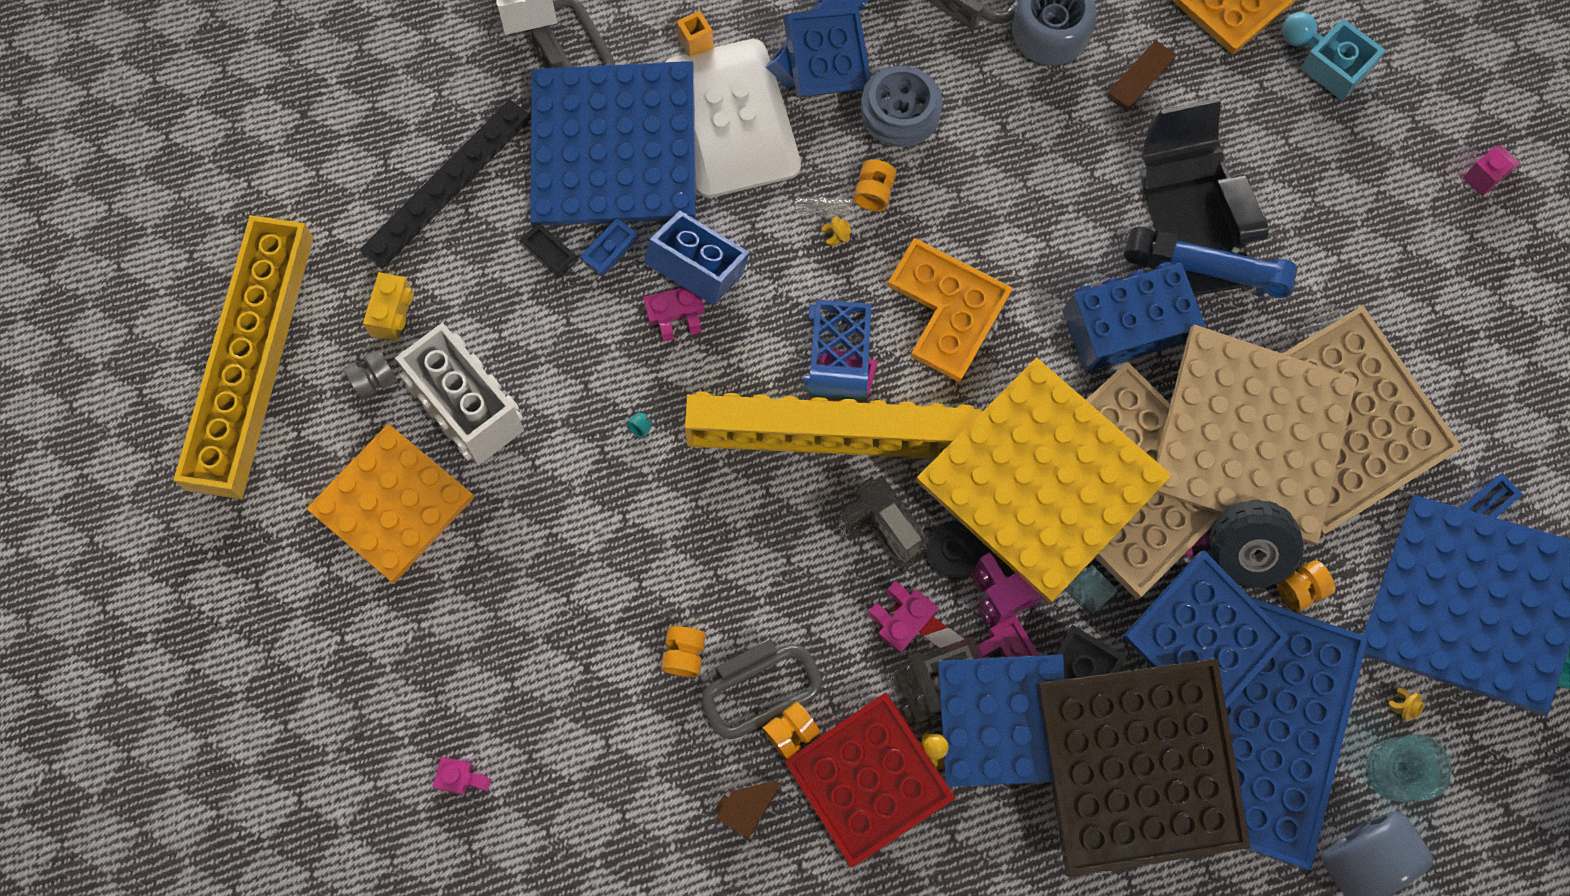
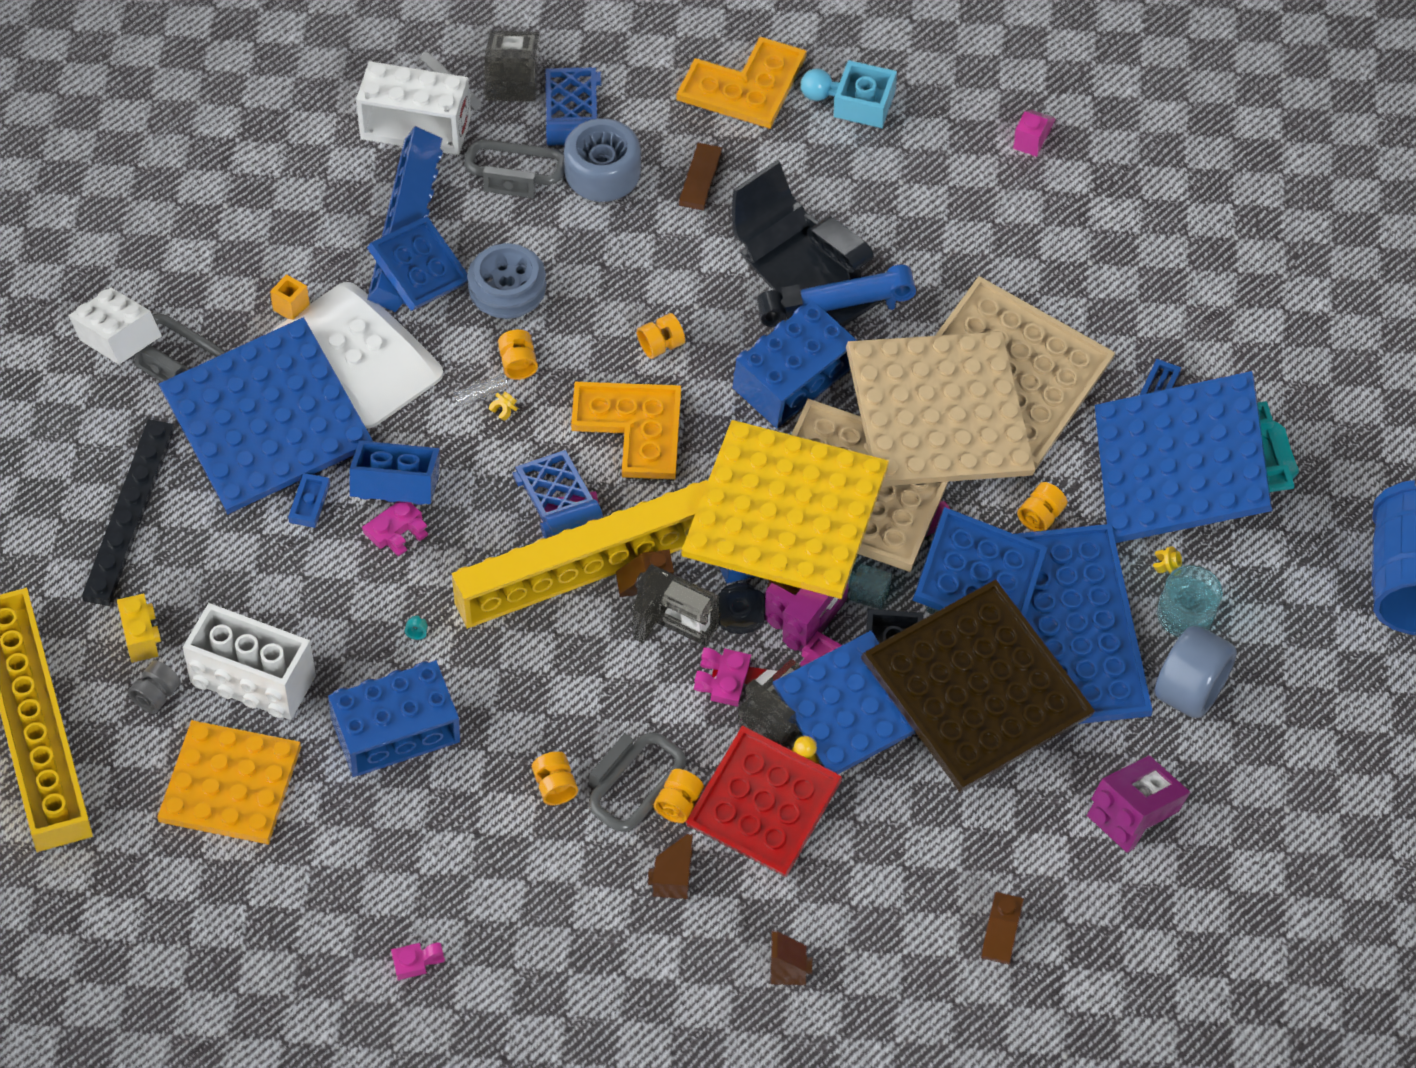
camera: 25 degrees left, 15 degrees down
(548, 250) = (254, 526): black tile -> none
(562, 516) = (394, 718): none -> blue brick
(893, 469) = (628, 574): none -> reddish brown slope
(1010, 229) = (659, 336): none -> light orange wheel
(1256, 543) = (985, 486): black wheel -> none

